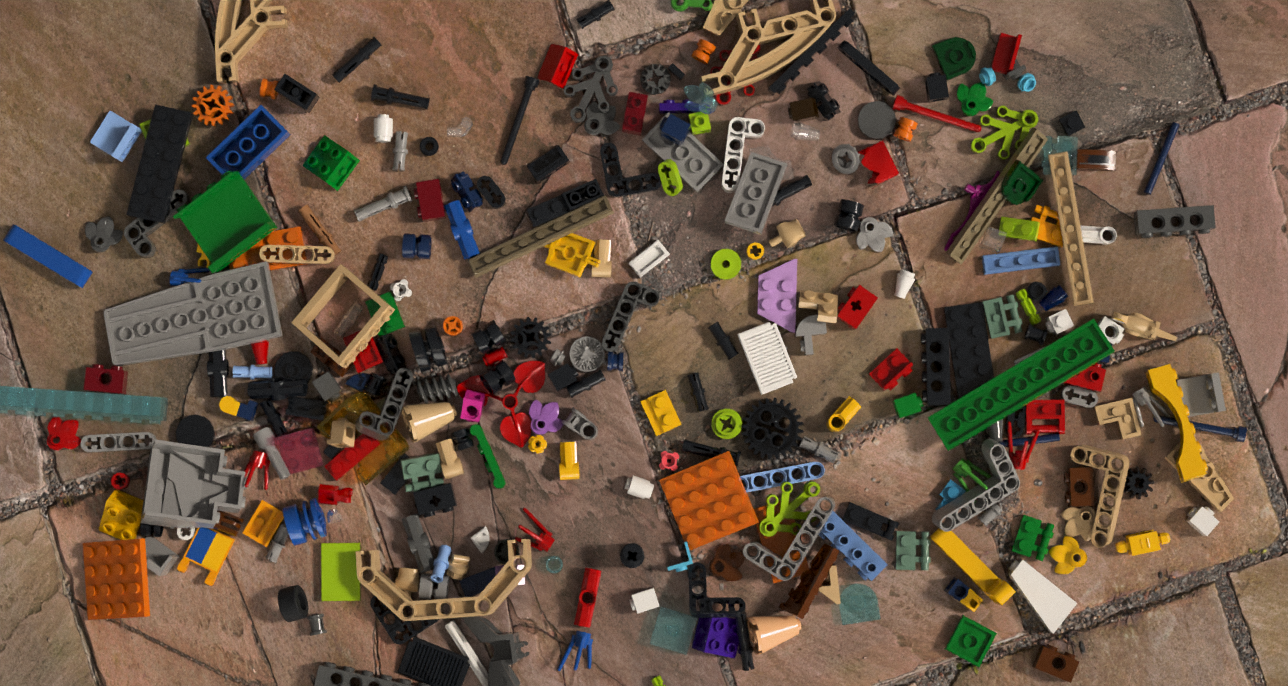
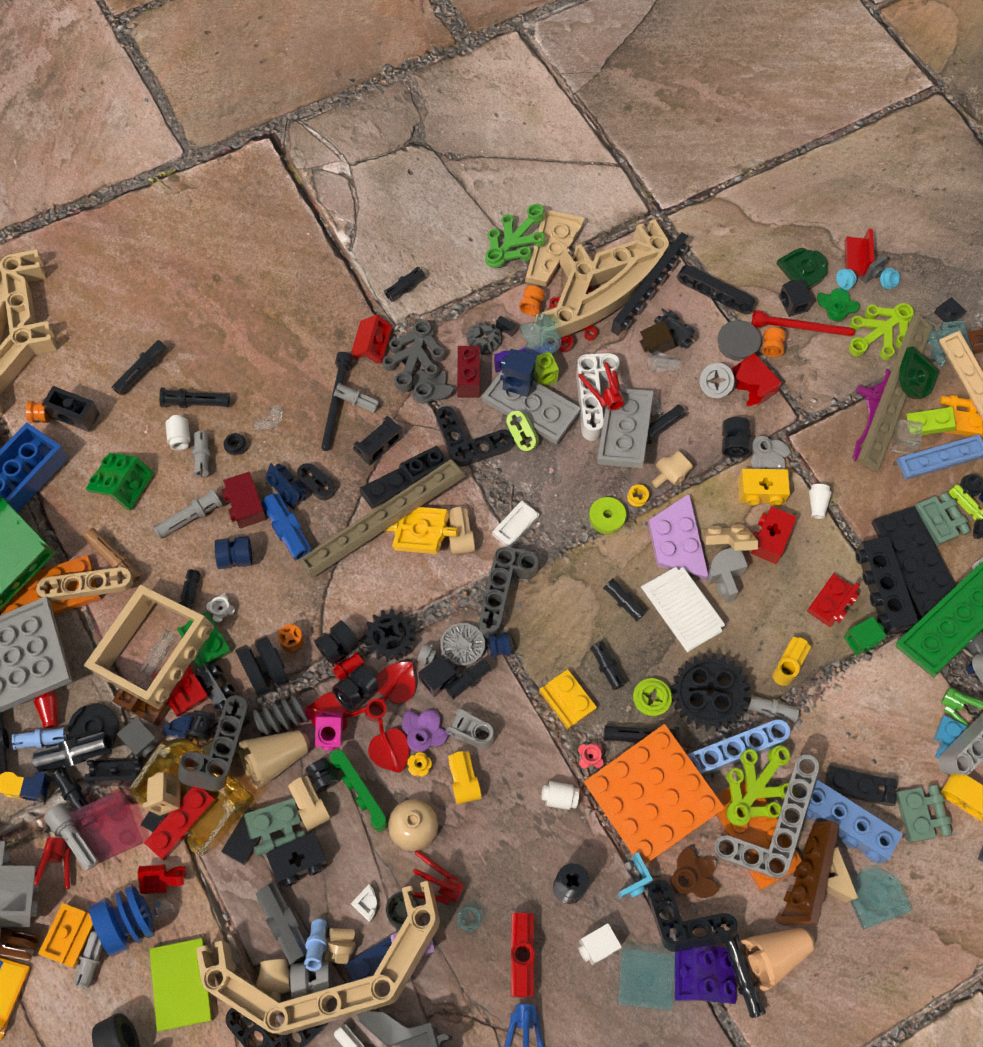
camera: 15 degrees left, 20 degrees down
(525, 489) = (413, 825): none -> tan cylinder
(535, 121) = (356, 397): none -> light grey axle
(750, 166) = (612, 396): none -> red plant
(869, 259) = (763, 486): none -> yellow brick

